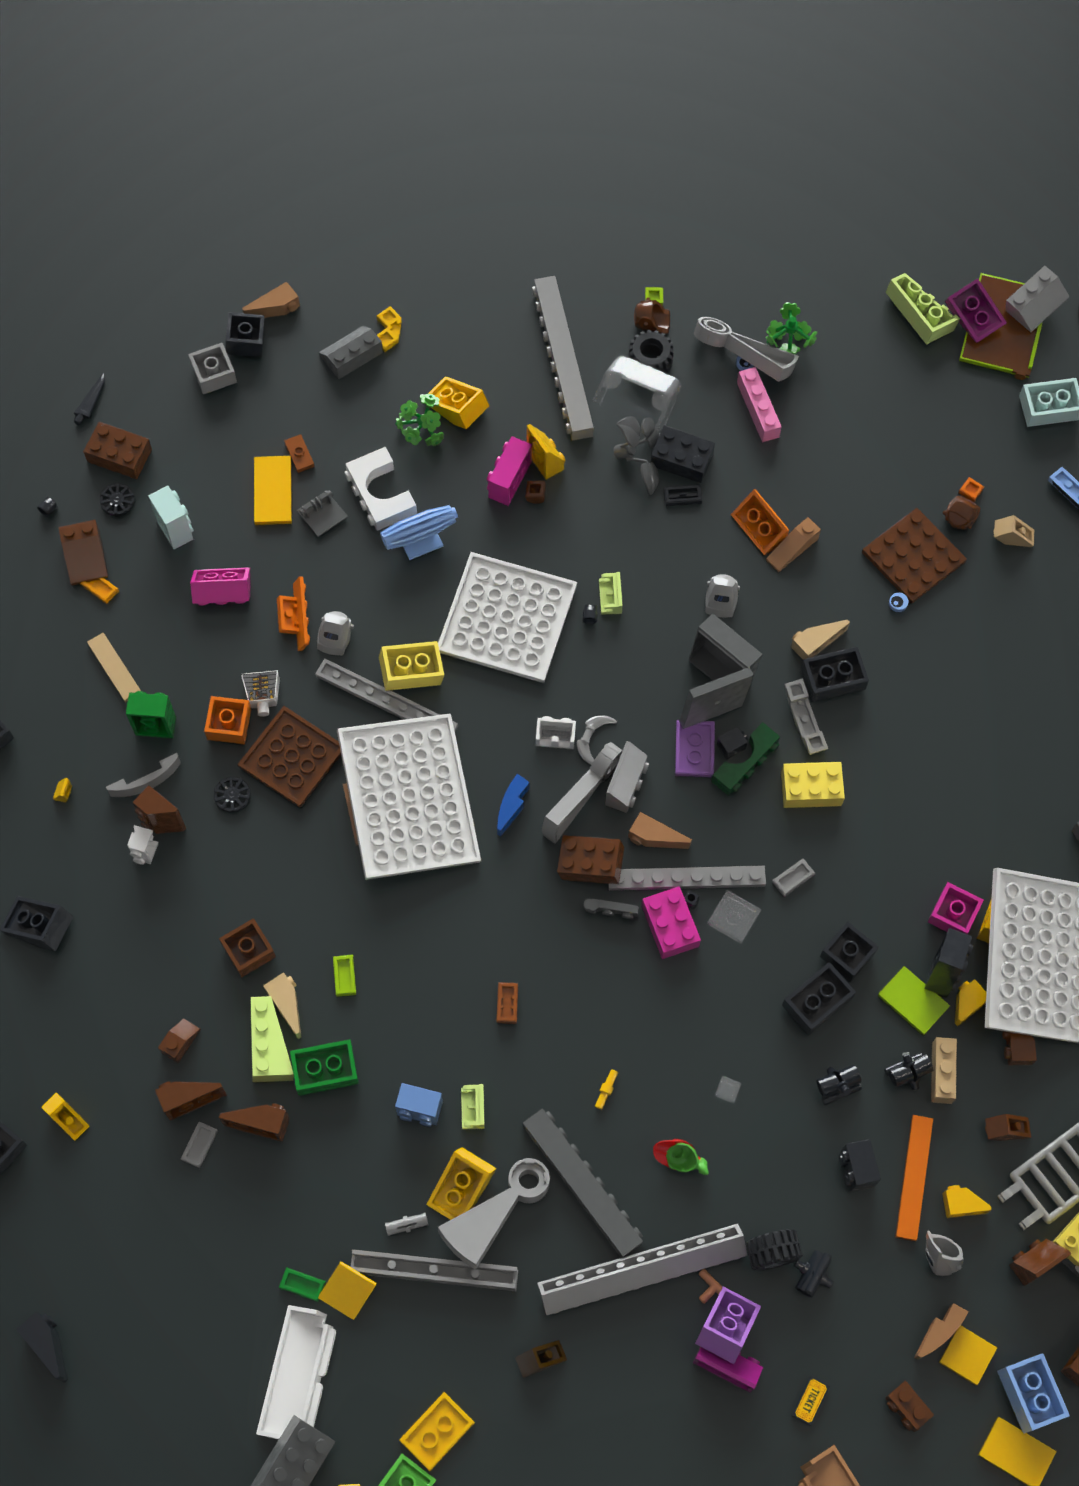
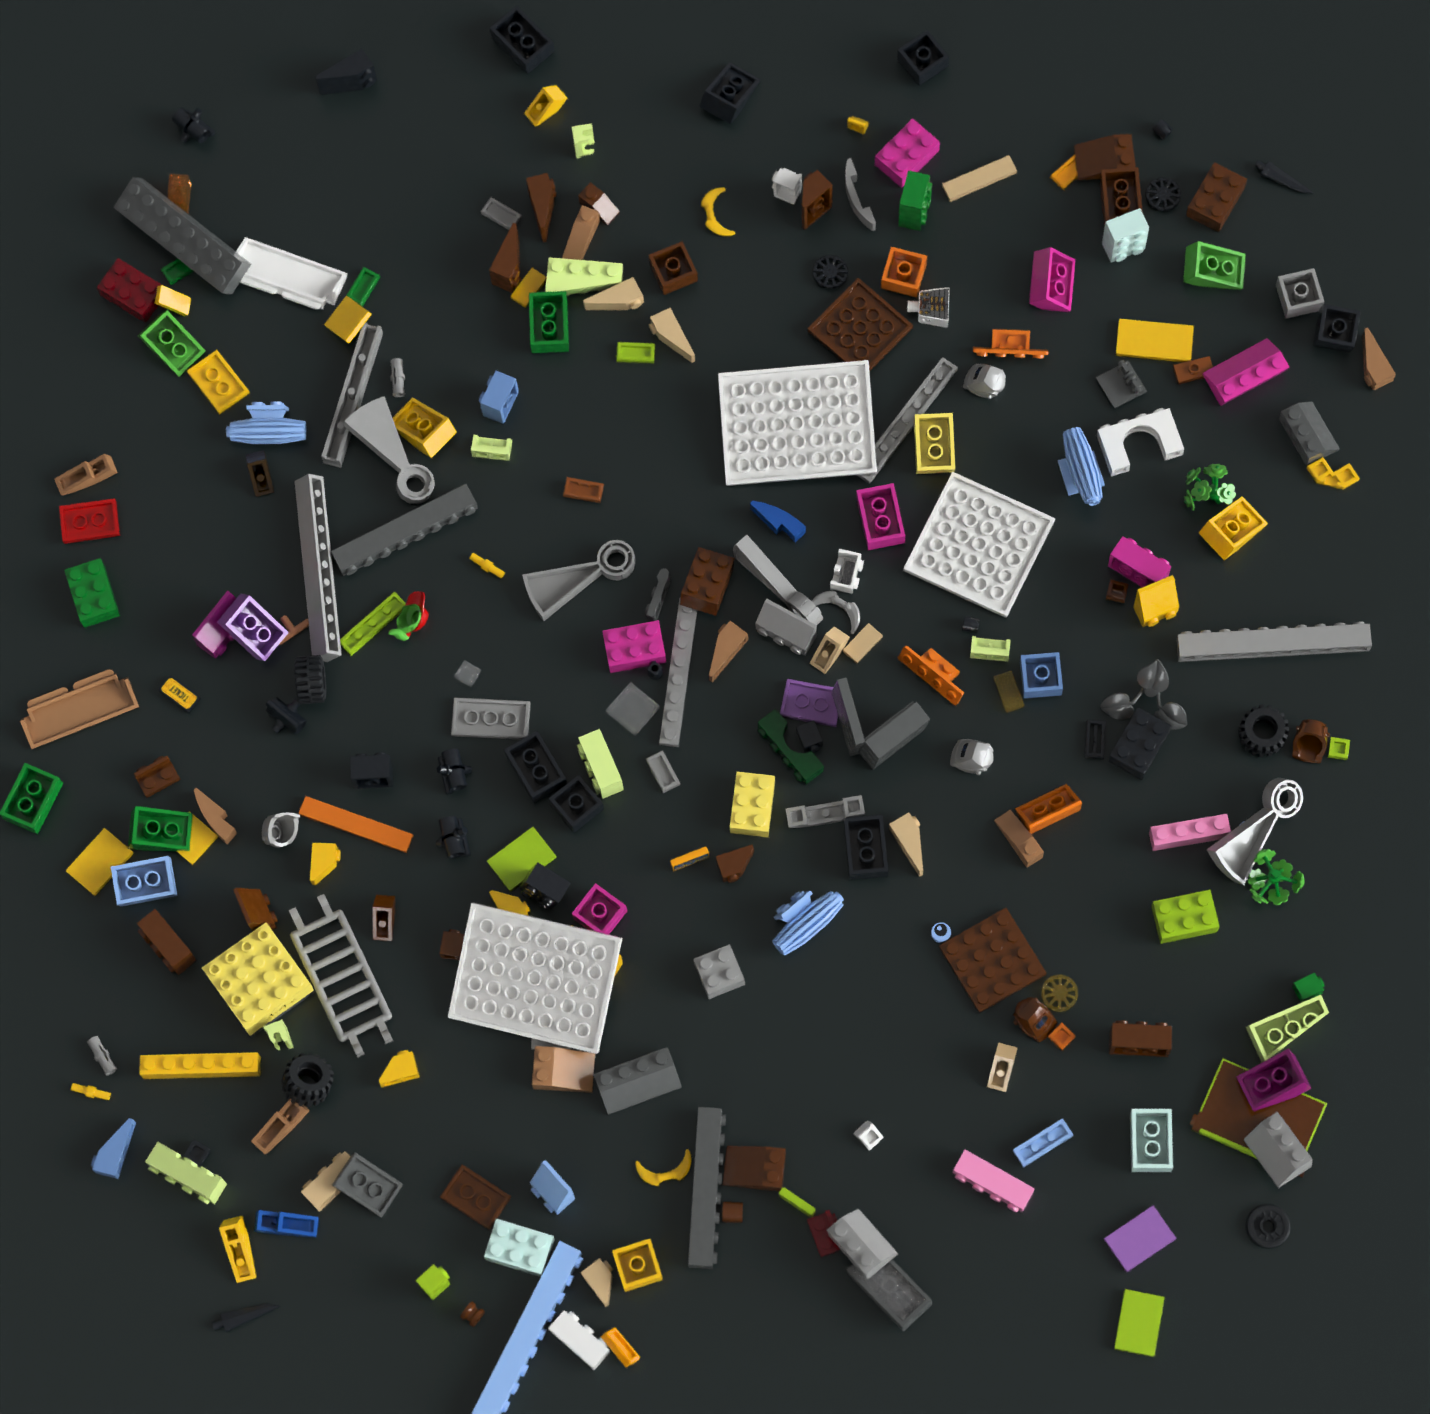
camera: 105 degrees right, 5 degrees up
(93, 736) = (906, 151): none -> dark pink brick
(108, 1068) = (583, 136): none -> yellowish green hinge
(127, 531) = (1119, 192): none -> reddish brown brick
(188, 920) = (711, 222): none -> yellow piece
(191, 446) = (1214, 266): none -> bright green slope
(218, 1052) = (581, 233): none -> medium nougat slope
(278, 1095) = (530, 284): none -> yellow tile
(298, 405) = (1245, 371): none -> dark pink slope
(319, 941) = (669, 332): none -> tan slope
(485, 1359) = (267, 426): none -> light blue plate
(494, 706) = (880, 516): none -> dark pink brick
(620, 1013) = (555, 587): none -> light grey piece
(625, 709) = (862, 643): none -> tan tile
(632, 543) = (1041, 675): none -> medium blue brick
(639, 735) = (829, 649): none -> tan slope
(643, 639) = (934, 671): none -> orange bracket
(650, 574) = (1008, 691): none -> clear yellow tile
(664, 385) = (1225, 712): clear windscreen -> none
(690, 1200) = (372, 623): none -> lime tile
(771, 1057) = (490, 718): none -> light grey tile
(804, 933) = (599, 764): none -> yellowish green brick
(839, 399) = (1185, 916): none -> lime brick
(874, 793) = (734, 863): none -> reddish brown slope
(879, 836) = (689, 858): none -> light orange tile
(880, 298) = (1308, 987): none -> green brick
(916, 721) = (804, 918): none -> light blue plate
(931, 495) = (1059, 992): none -> clear yellow wheel
(944, 1074) = (447, 869): tan brick -> none
(964, 419) = (1140, 1039): none -> reddish brown brick
(971, 1389) = (159, 830): none -> green slope
(986, 790) = (719, 971): none -> light grey brick

